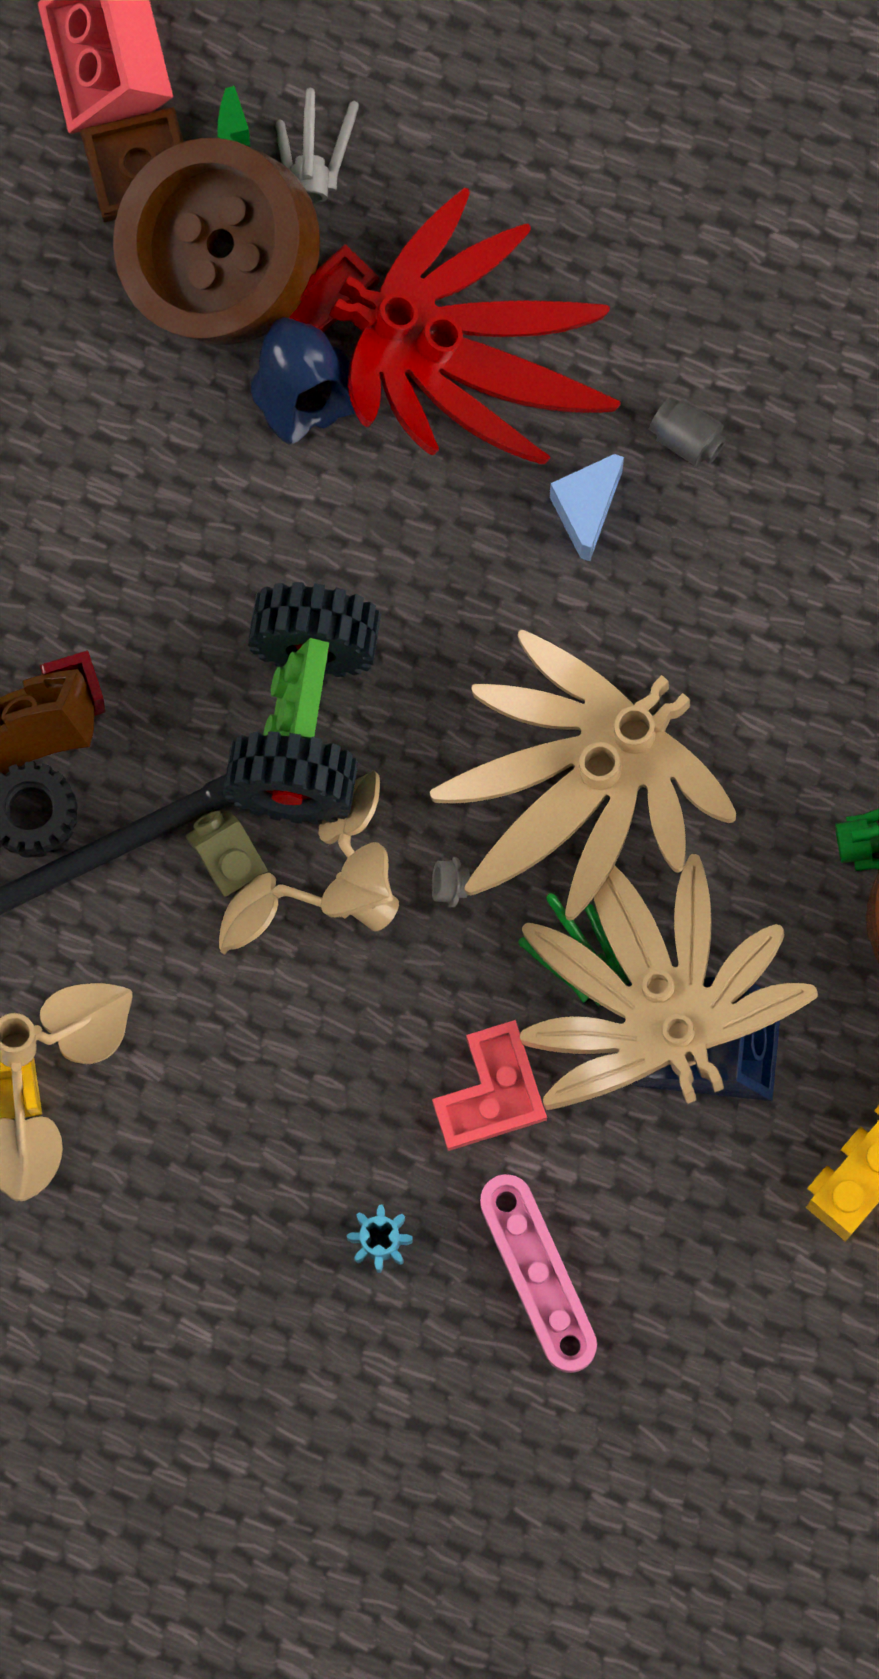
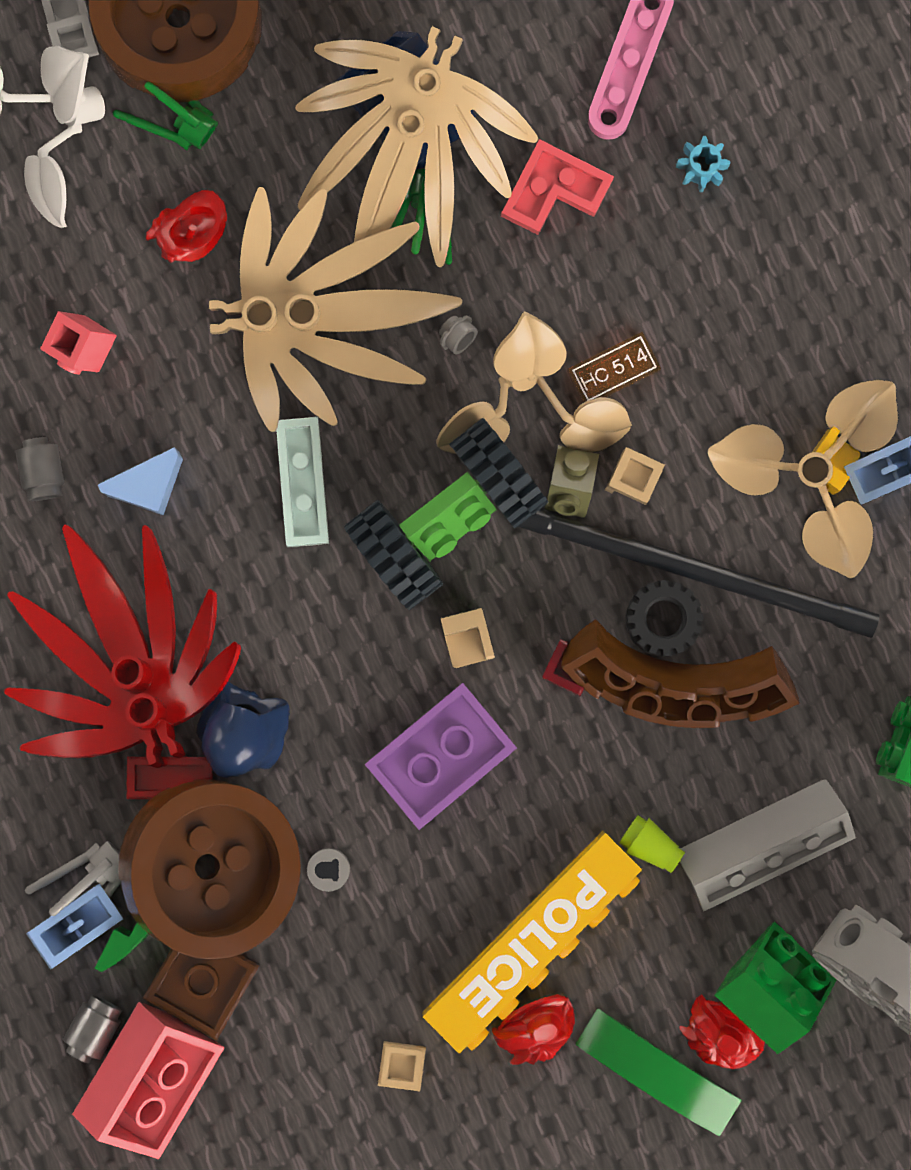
camera: 145 degrees left, 10 degrees up
(114, 519) = (440, 756): none -> medium lavender plate
(120, 344) = (328, 869): none -> light grey tile
(172, 900) = (635, 476): none -> tan panel
(187, 636) = (467, 638): none -> tan panel
(190, 46) = (92, 1029): none -> flat silver brick
(282, 102) = (74, 926): none -> light blue slope
(283, 984) = (614, 368): none -> clear orange tile
(456, 628) = (302, 482): none -> light aqua plate
(762, 559) = (78, 343): none -> coral brick
(772, 747) = (190, 228): none -> red hat

